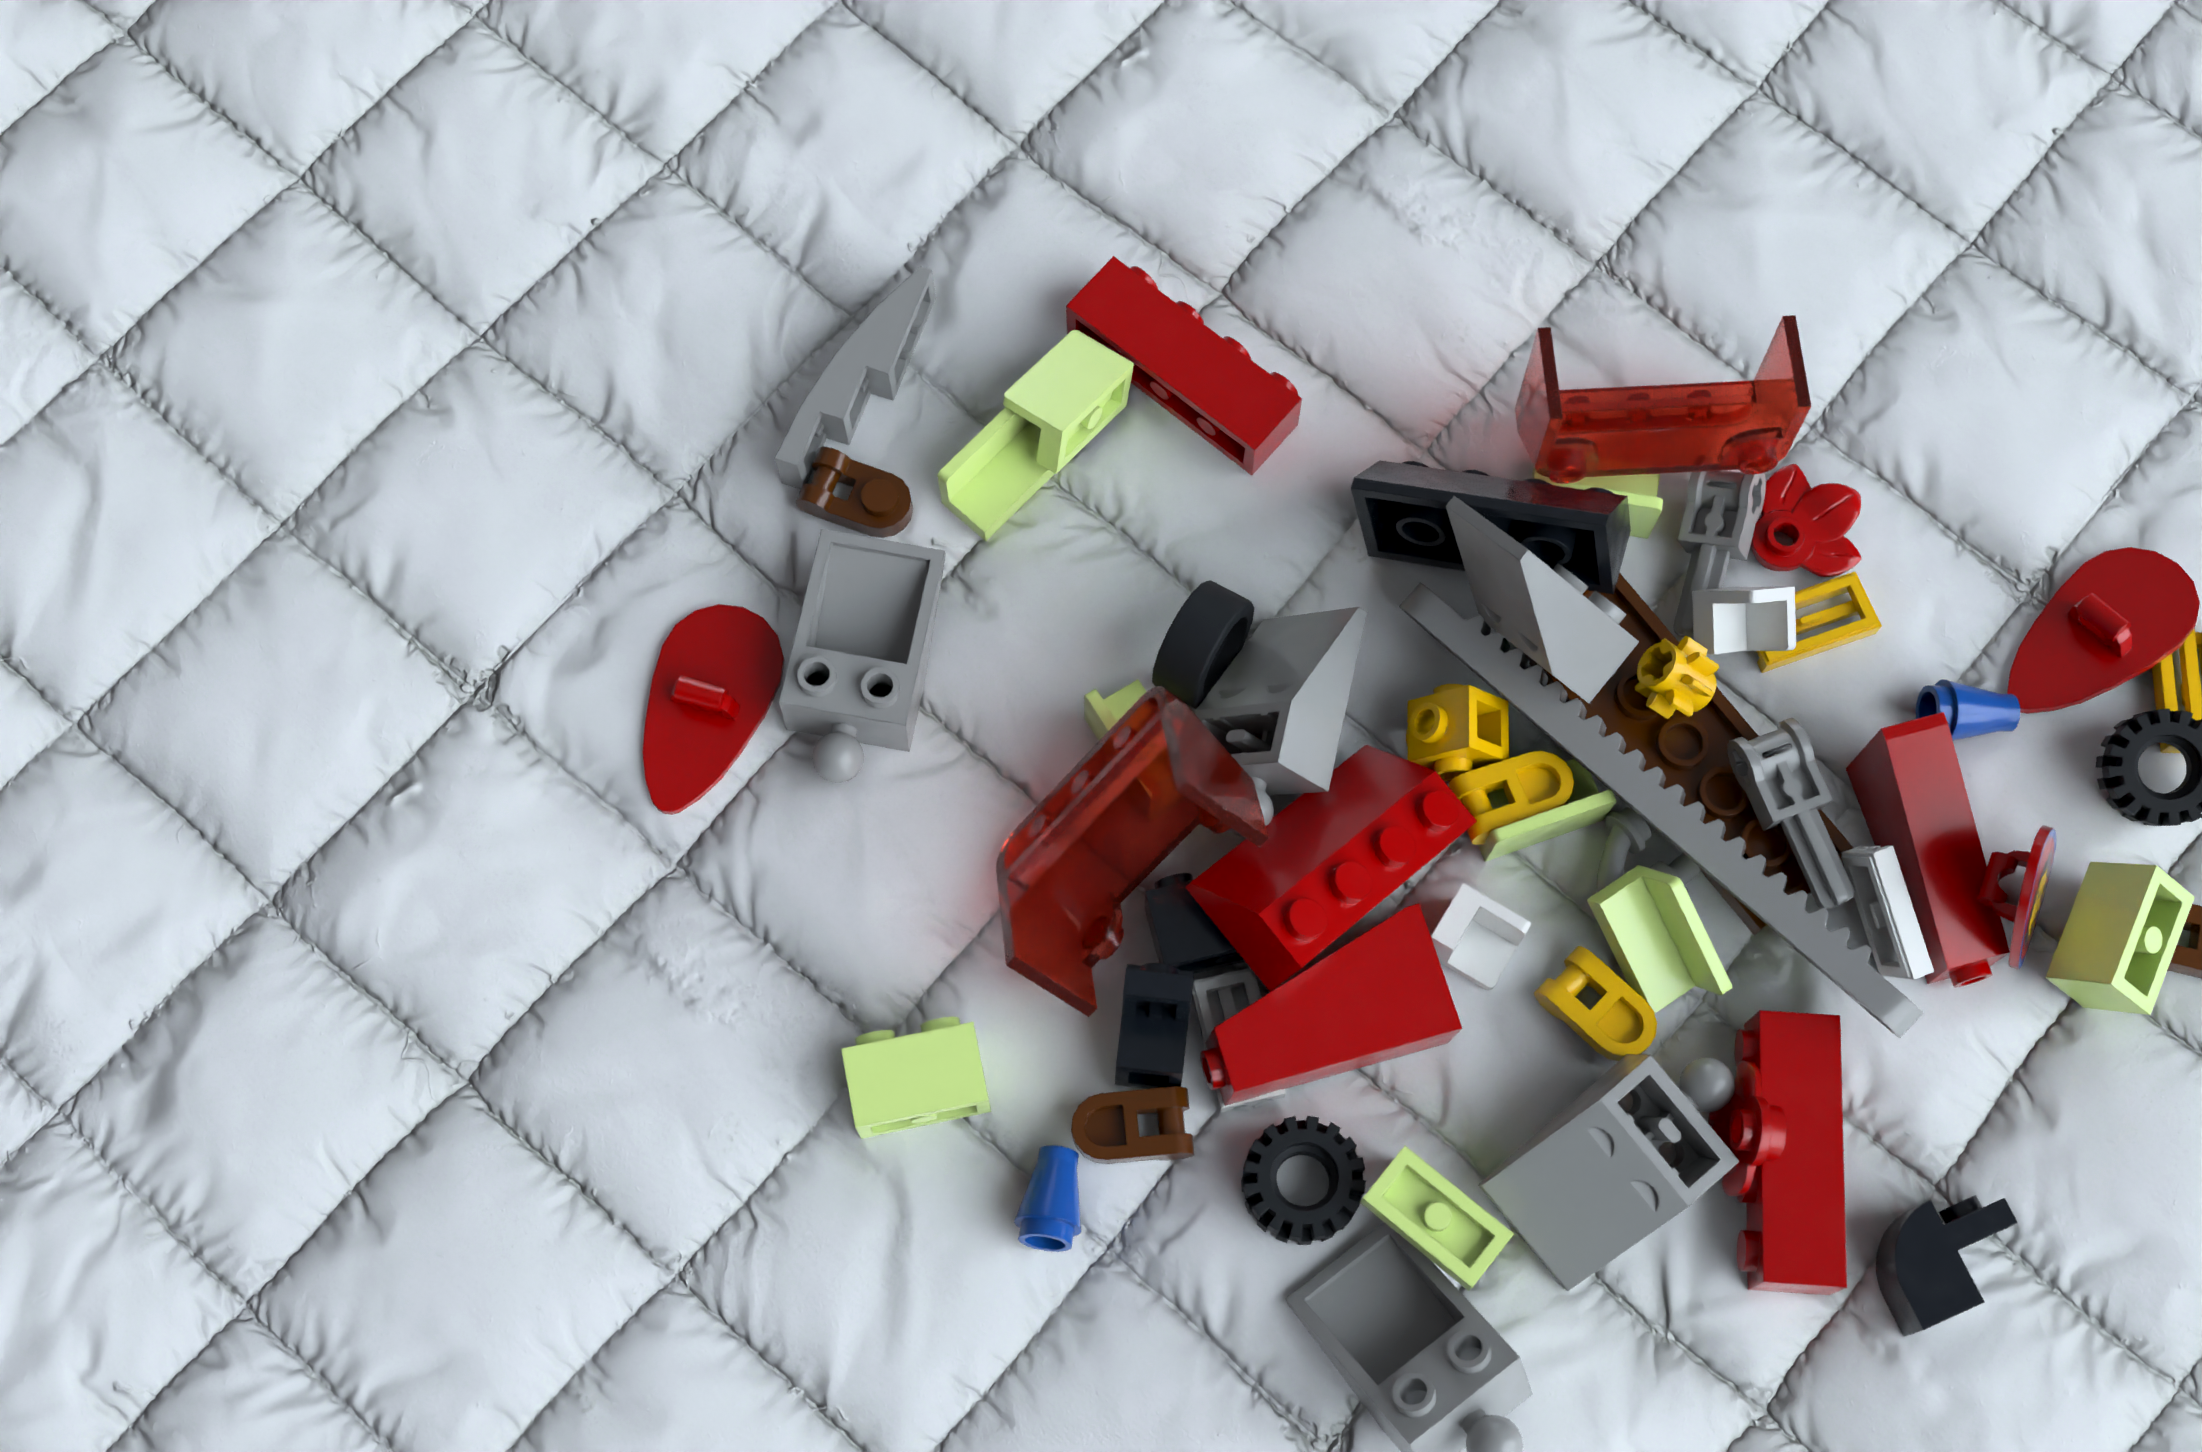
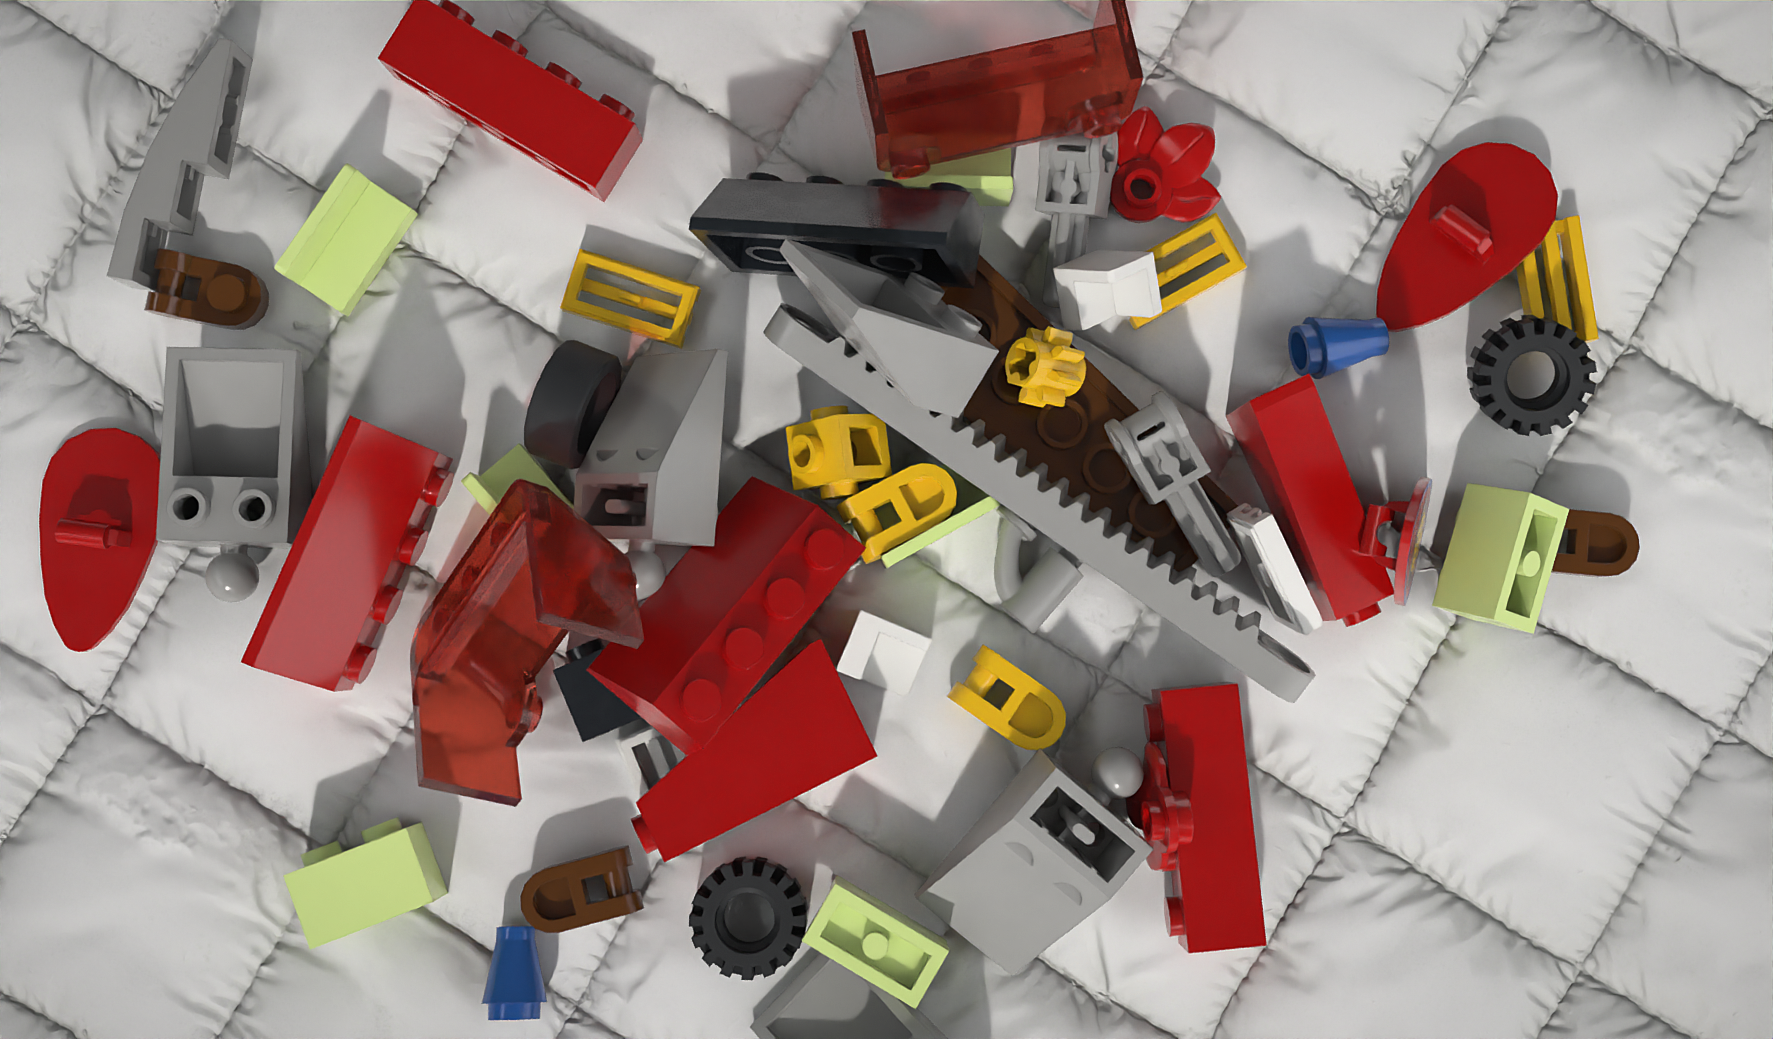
camera: 10 degrees left, 15 degrees up
(962, 754) = (350, 558): none -> red slope
(1071, 396) = (398, 157): yellowish green panel -> none
(1153, 1026) = (583, 795): black brick -> none
(1255, 584) = (680, 315): none -> yellow tile
(1657, 937) = (1052, 632): yellowish green panel -> none
(1921, 1261) = (1335, 900): black brick -> none

